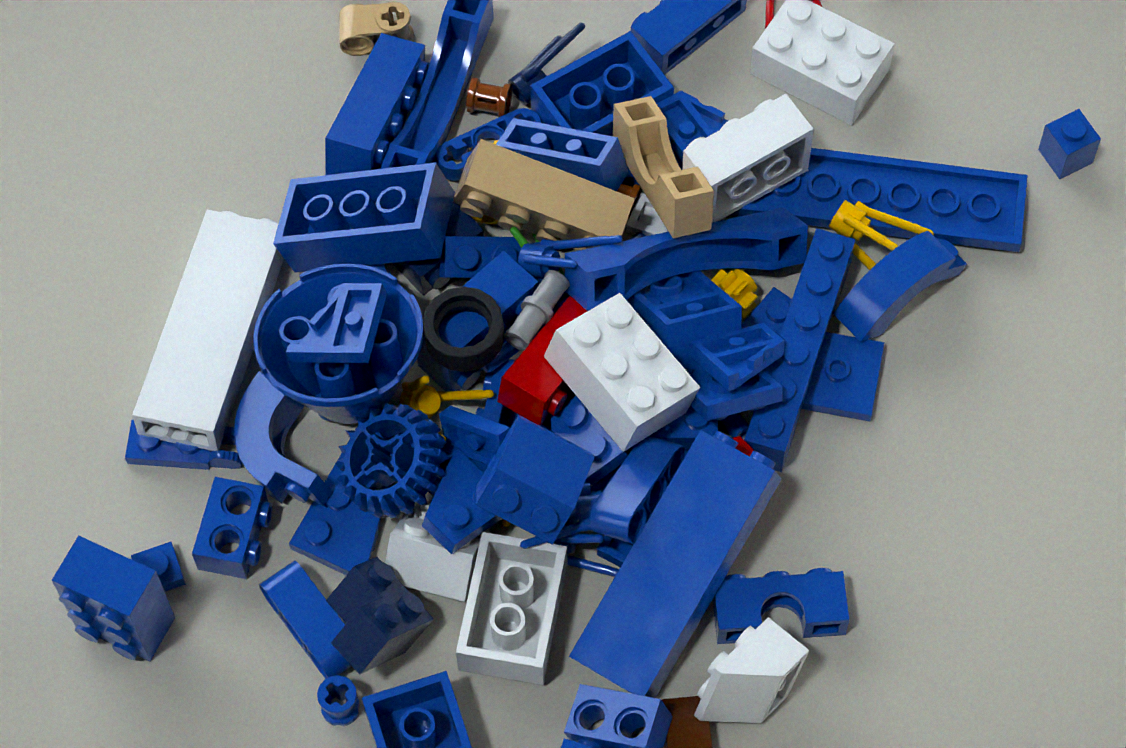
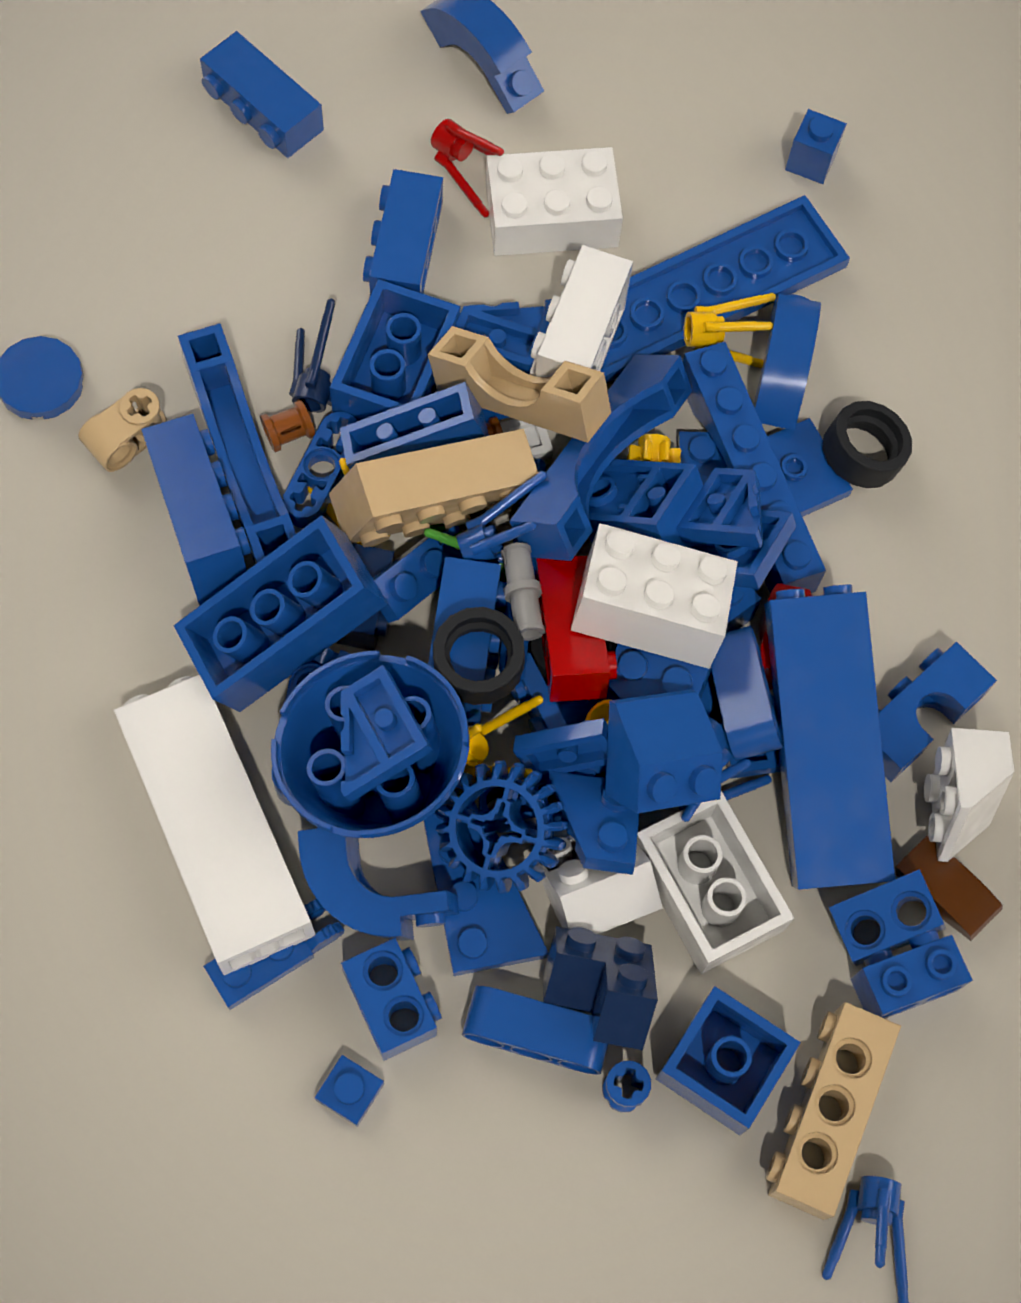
camera: 45 degrees left, 5 degrees up
(113, 599) = (353, 1158): blue brick -> none
(931, 373) = (880, 423): none -> black tyre

